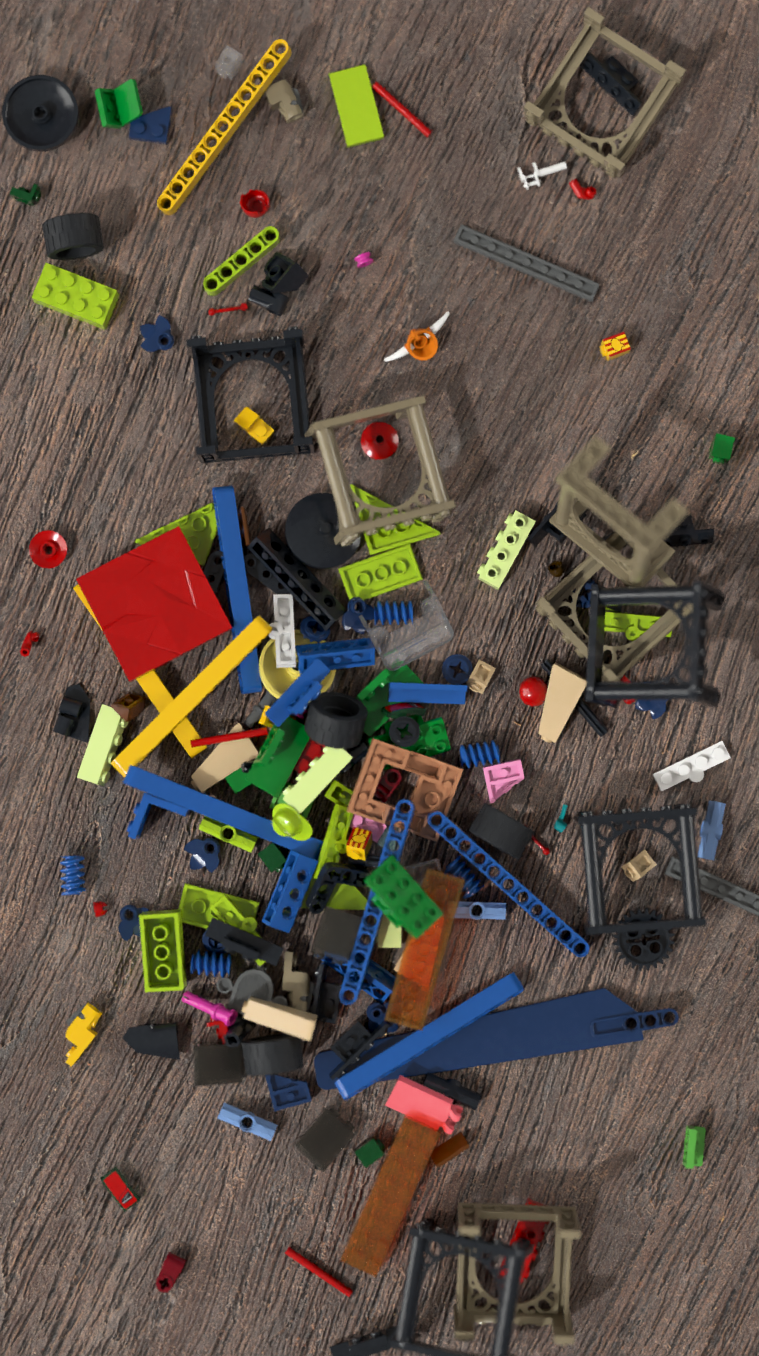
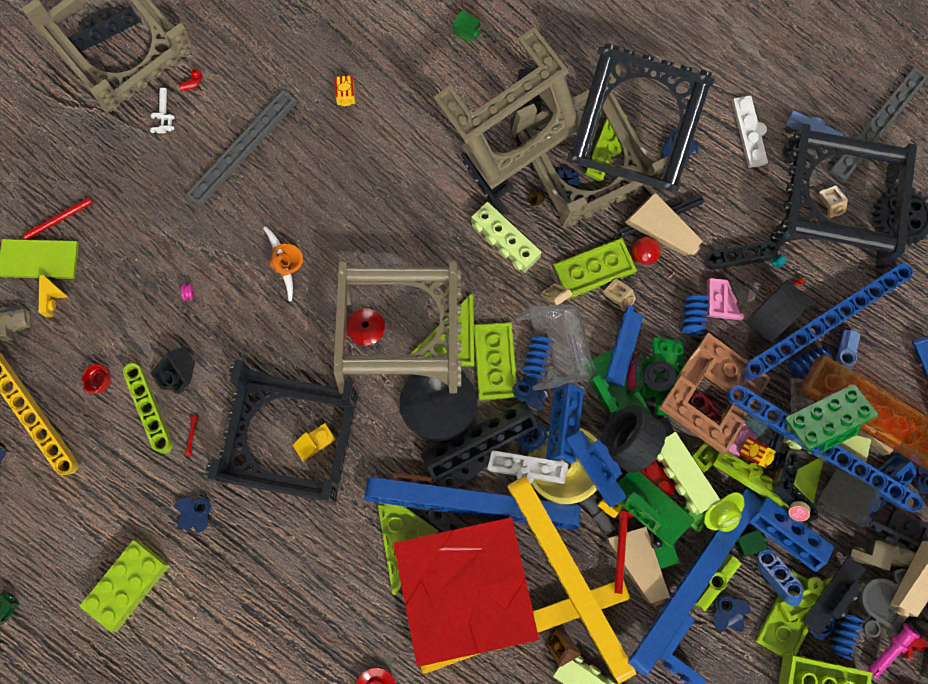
camera: 75 degrees left, 10 degrees down
(73, 236) = (62, 569): black tyre -> none
(241, 895) = (778, 568): none -> blue beam
(273, 302) = (198, 389): black piece -> none
(311, 892) = (799, 511): none -> tile
(326, 127) = (47, 293): none -> yellow slope
(448, 672) = (607, 305): dark blue gear -> none
(460, 613) = (556, 294): none -> tan tile
(501, 645) = (595, 267): none -> lime tile
(552, 786) = (740, 251): none -> black beam

